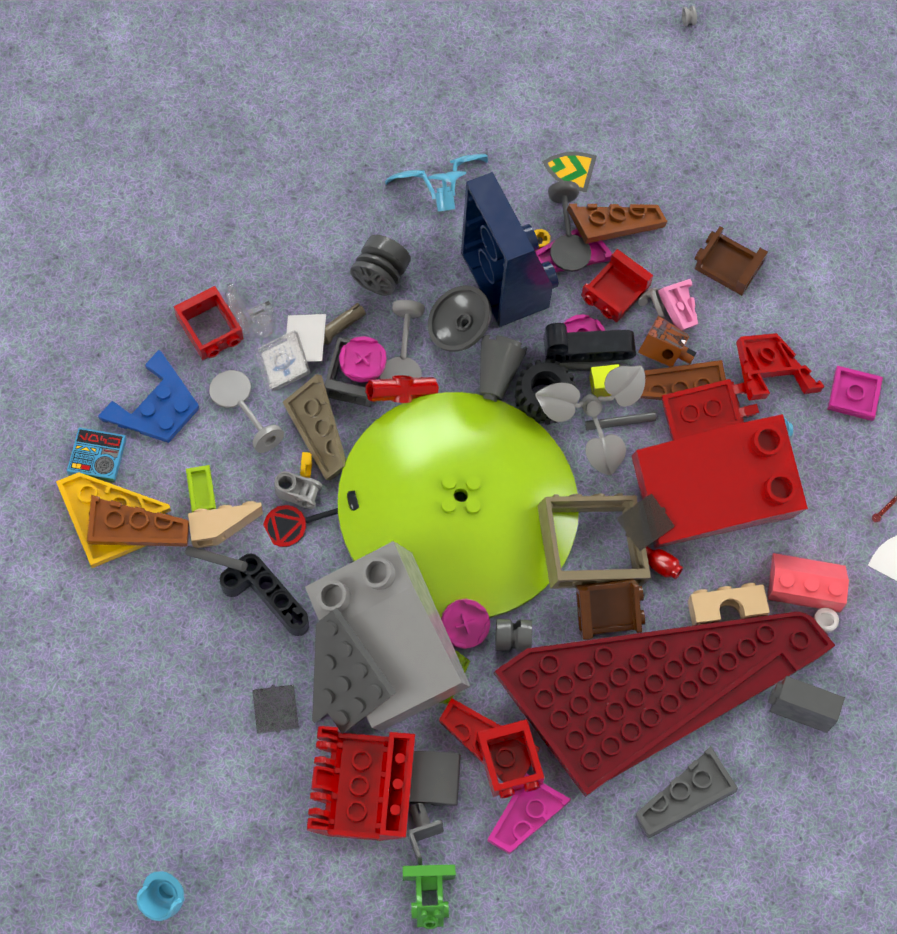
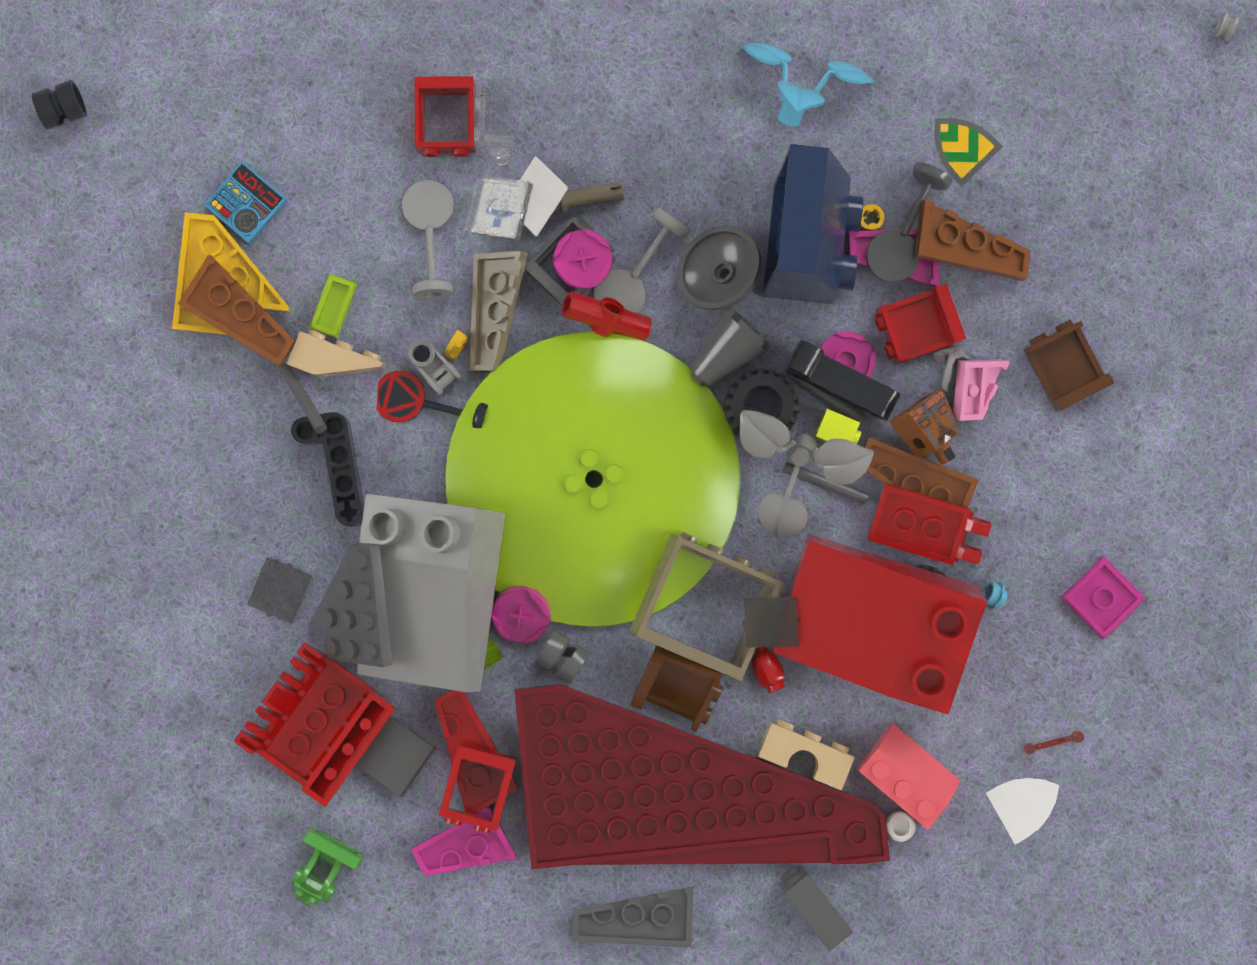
camera: 25 degrees right, 20 degrees up
(160, 896) = (58, 722): medium azure helmet -> none
(163, 410) = (344, 190): blue wing -> none
(380, 265) = (669, 154): dark grey wheel -> none
(423, 830) = (355, 800): dark grey bracket -> none
(771, 357) = (1032, 506): red wing -> none

